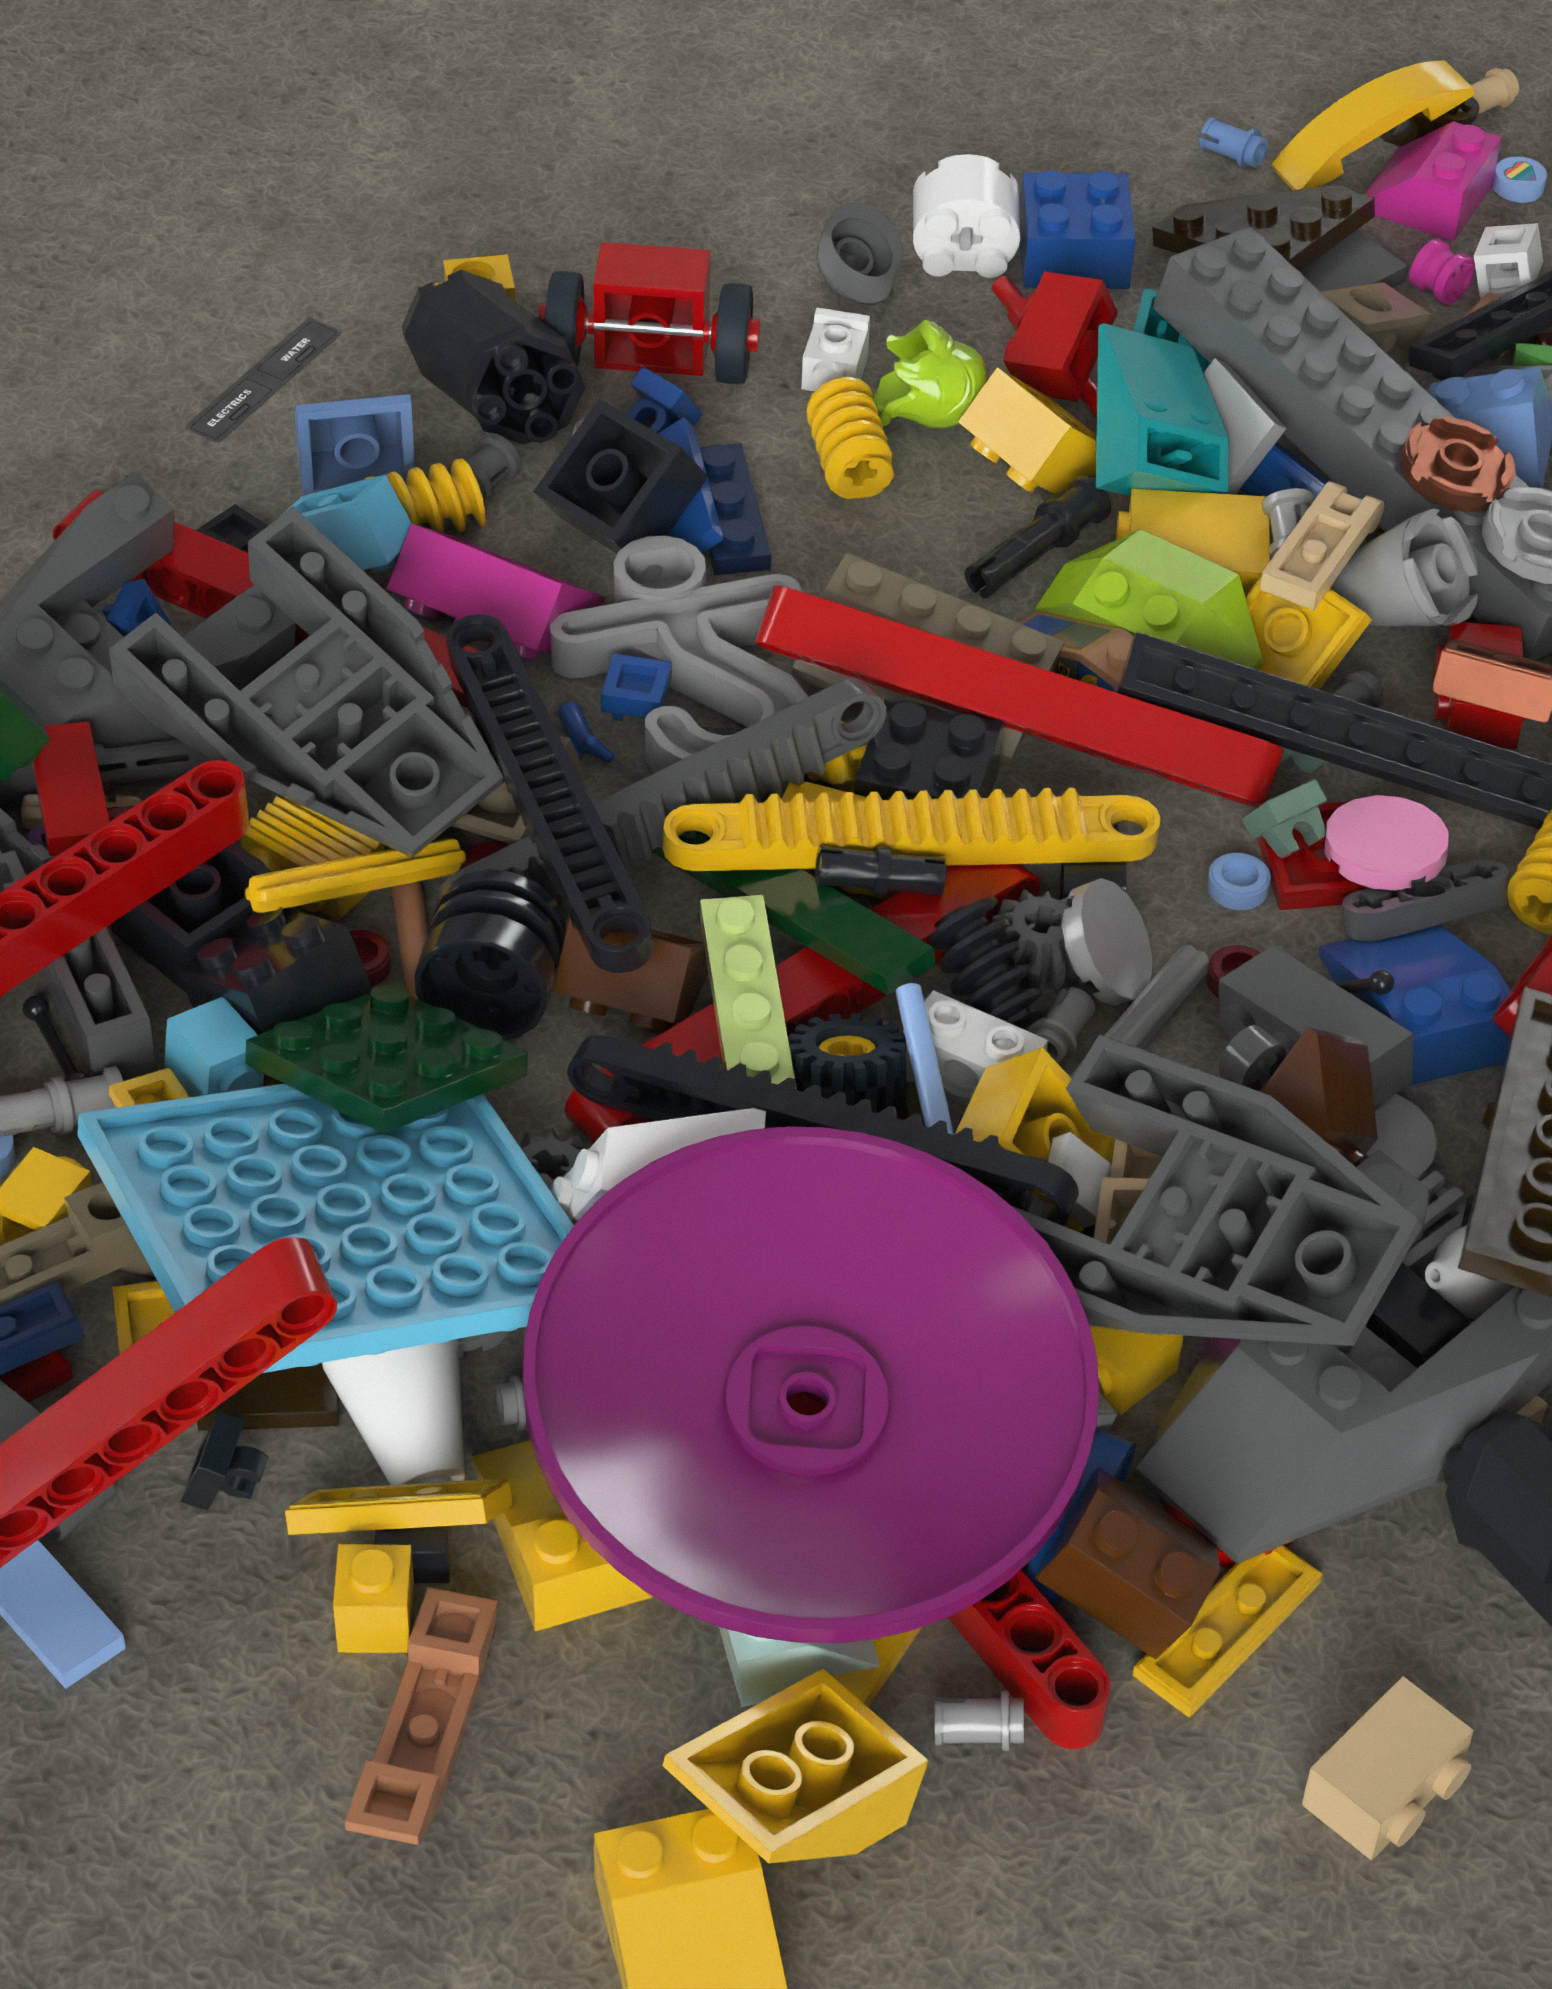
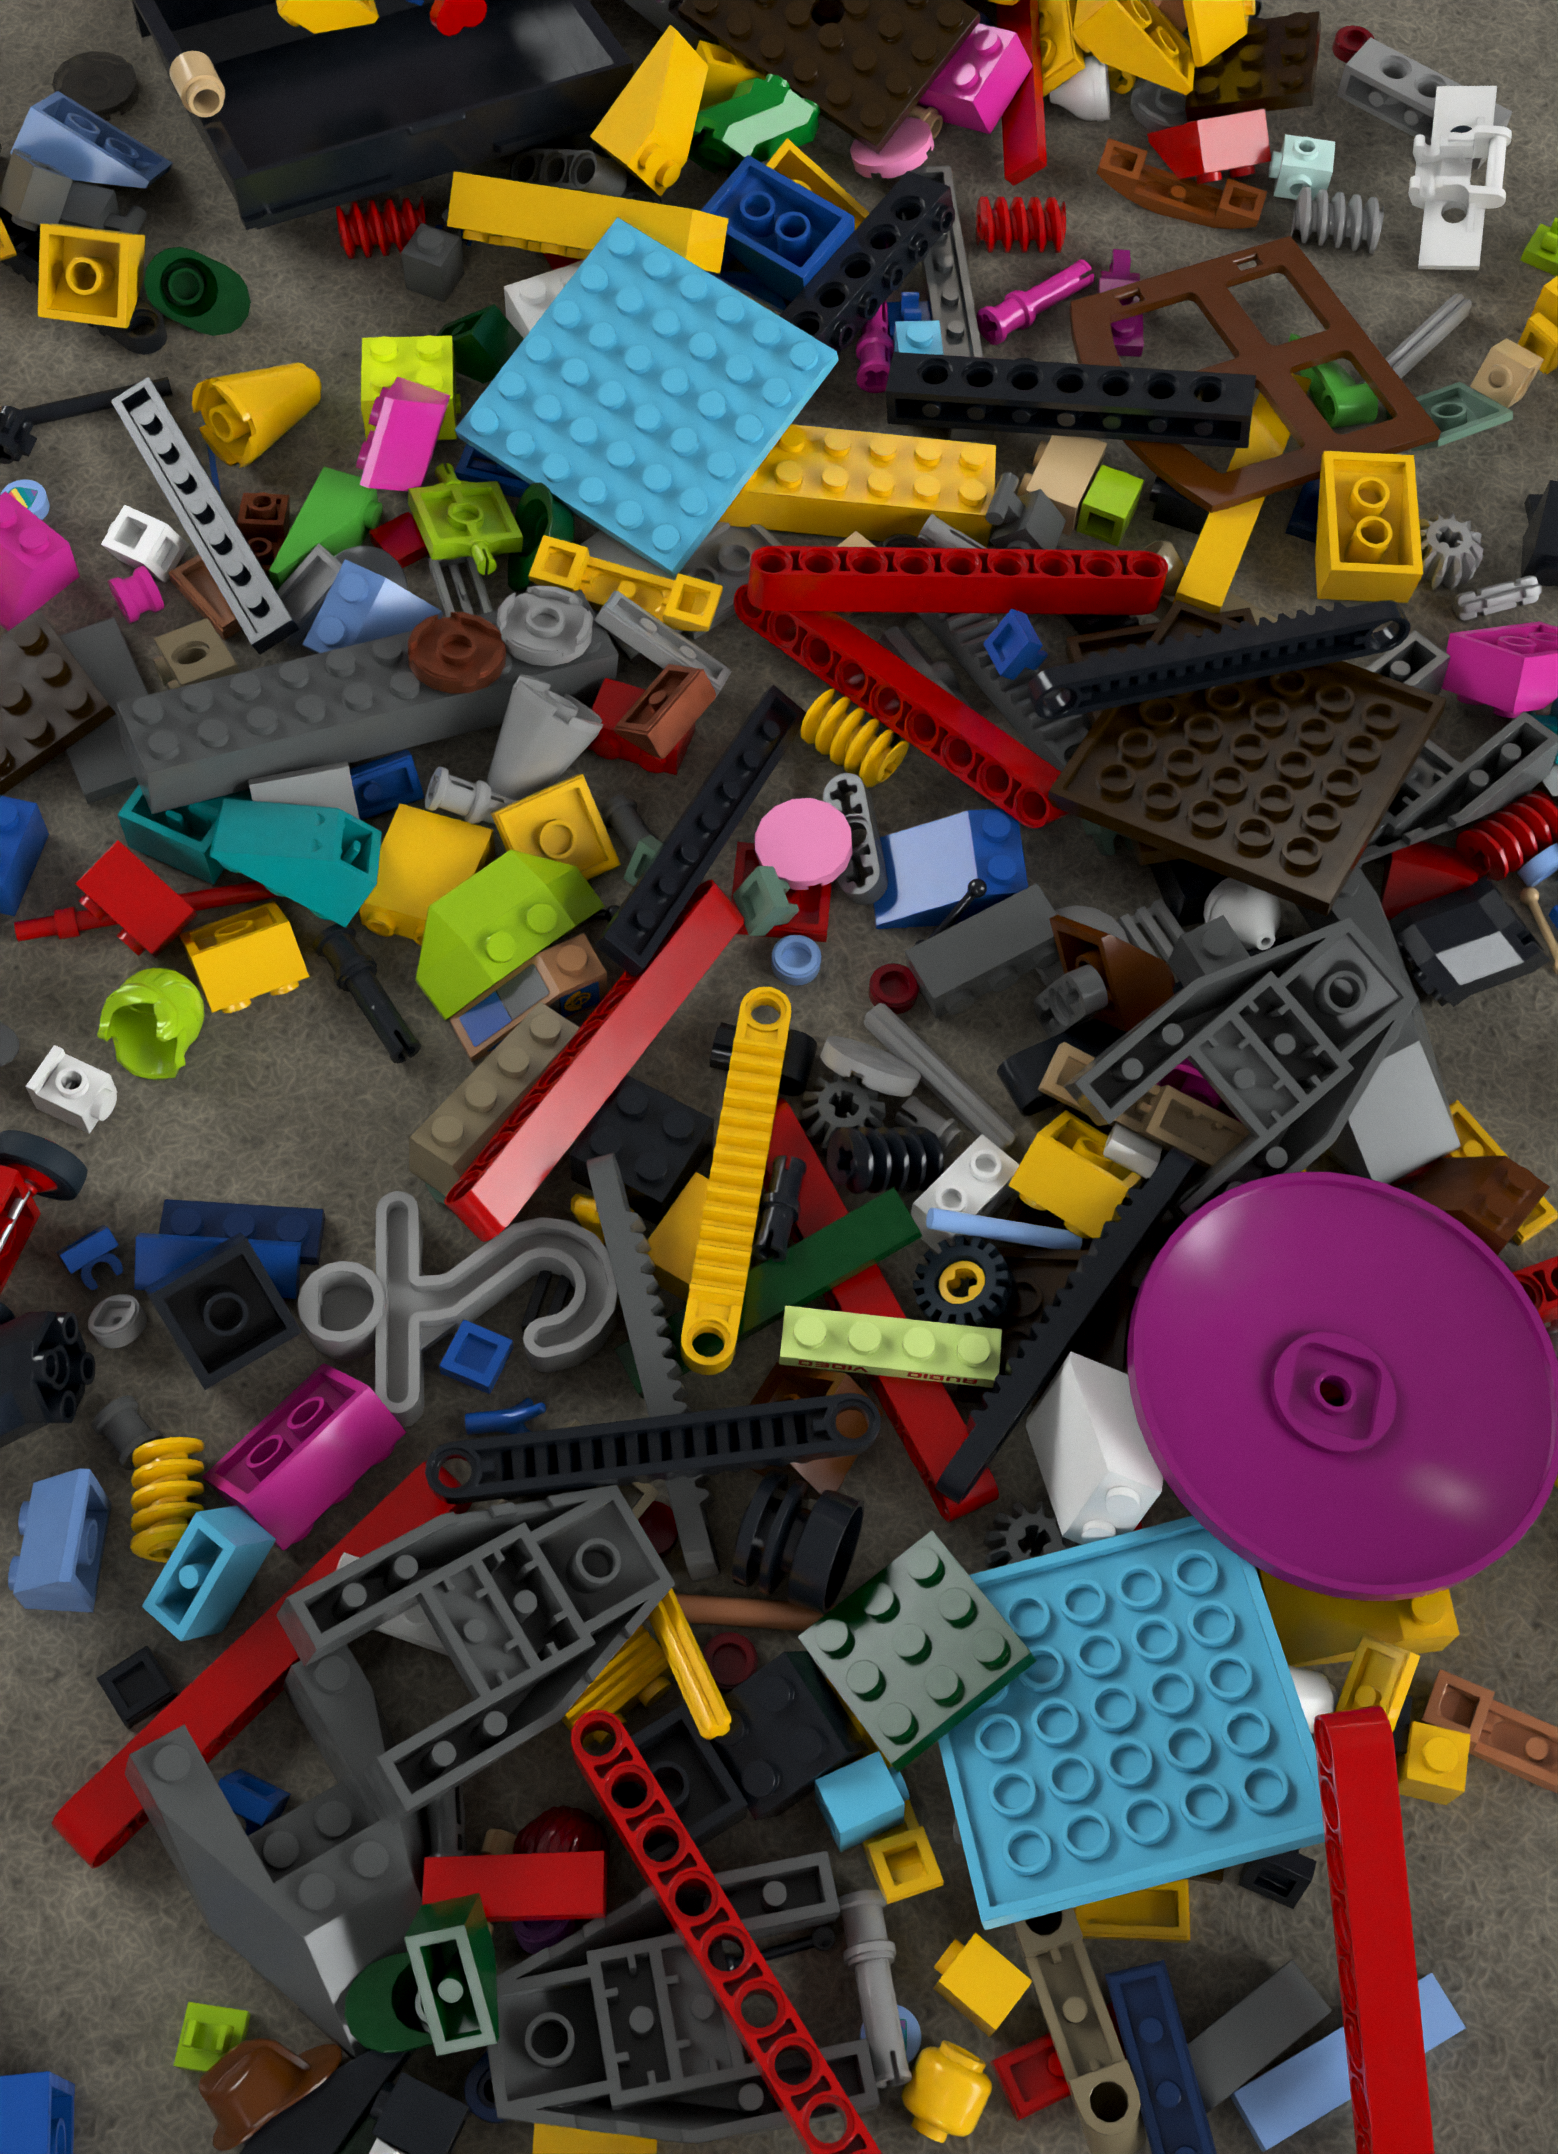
camera: 80 degrees left, 15 degrees up
(850, 438) = (198, 1107): yellow piece -> none
(1321, 545) = (513, 777): tan plate -> none

